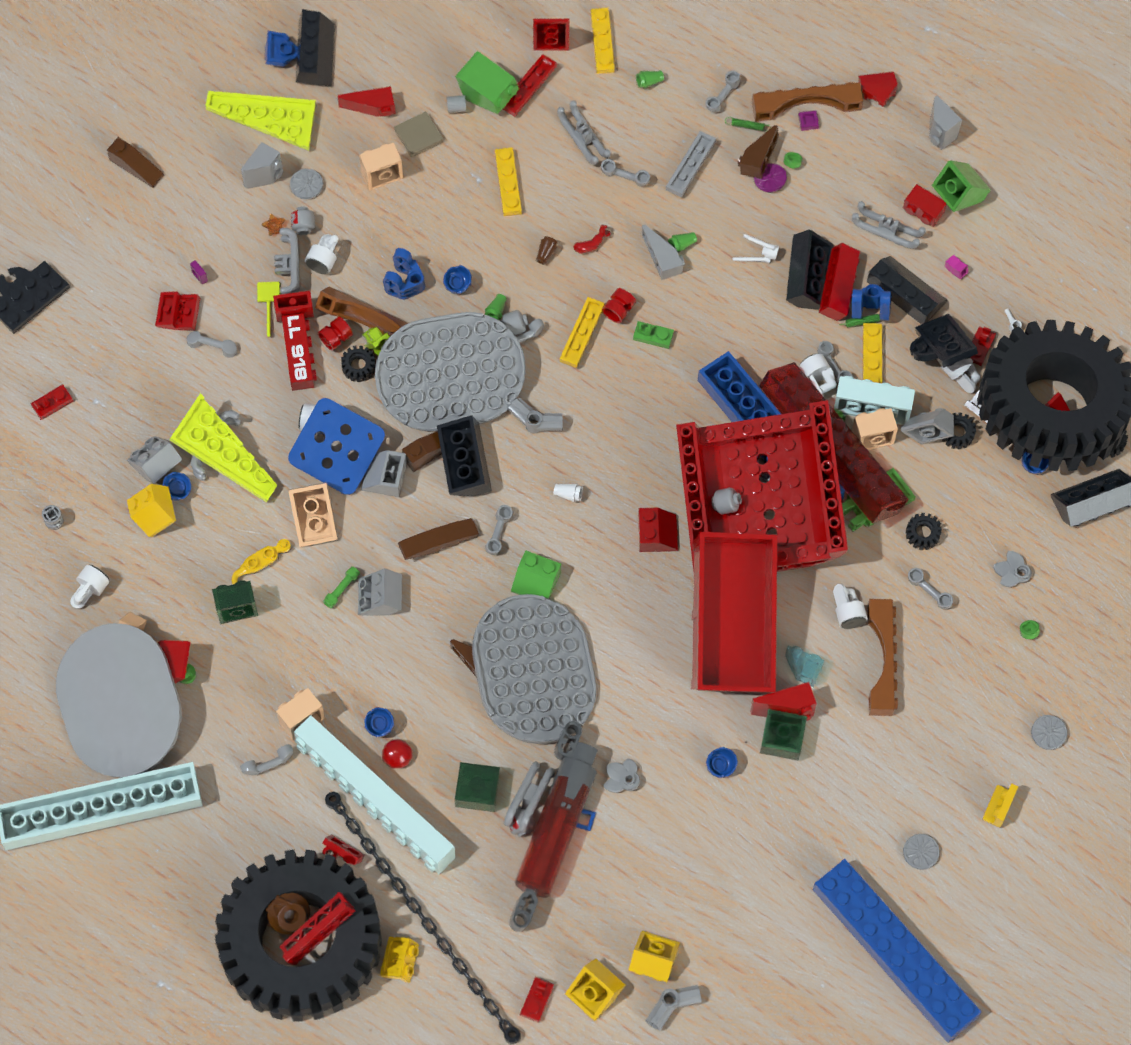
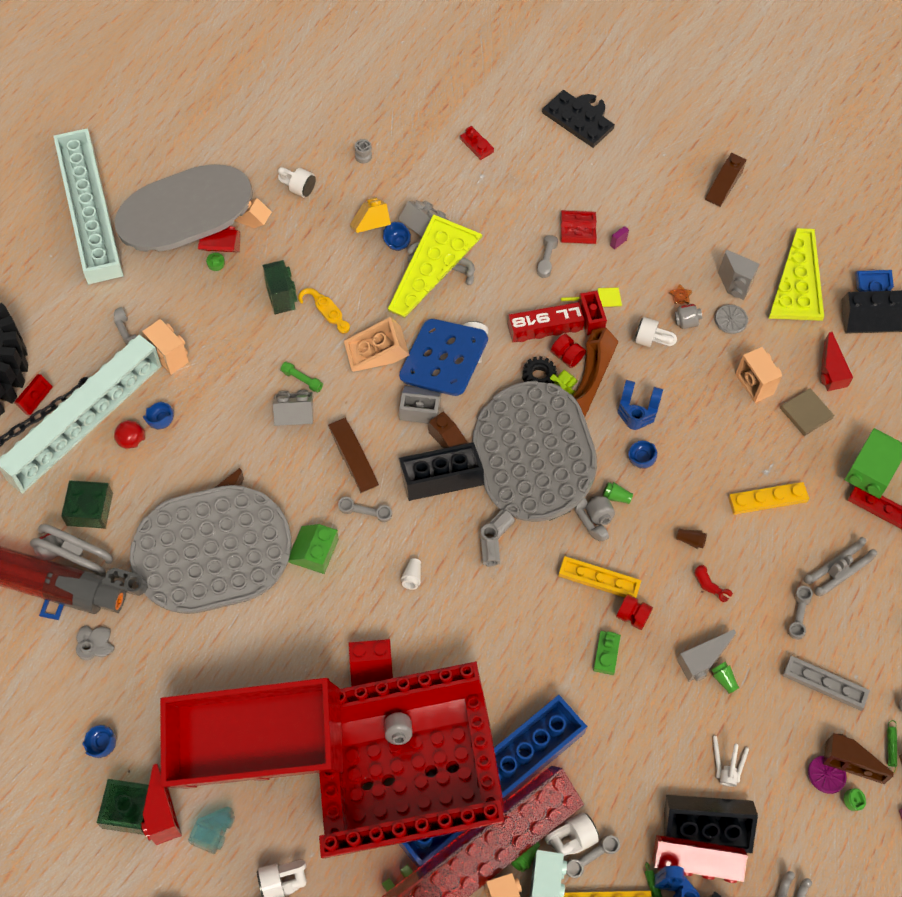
camera: 85 degrees right, 5 degrees down
(289, 262) = (638, 309): light grey piece -> none
(456, 104) = (849, 442): light grey beam -> none

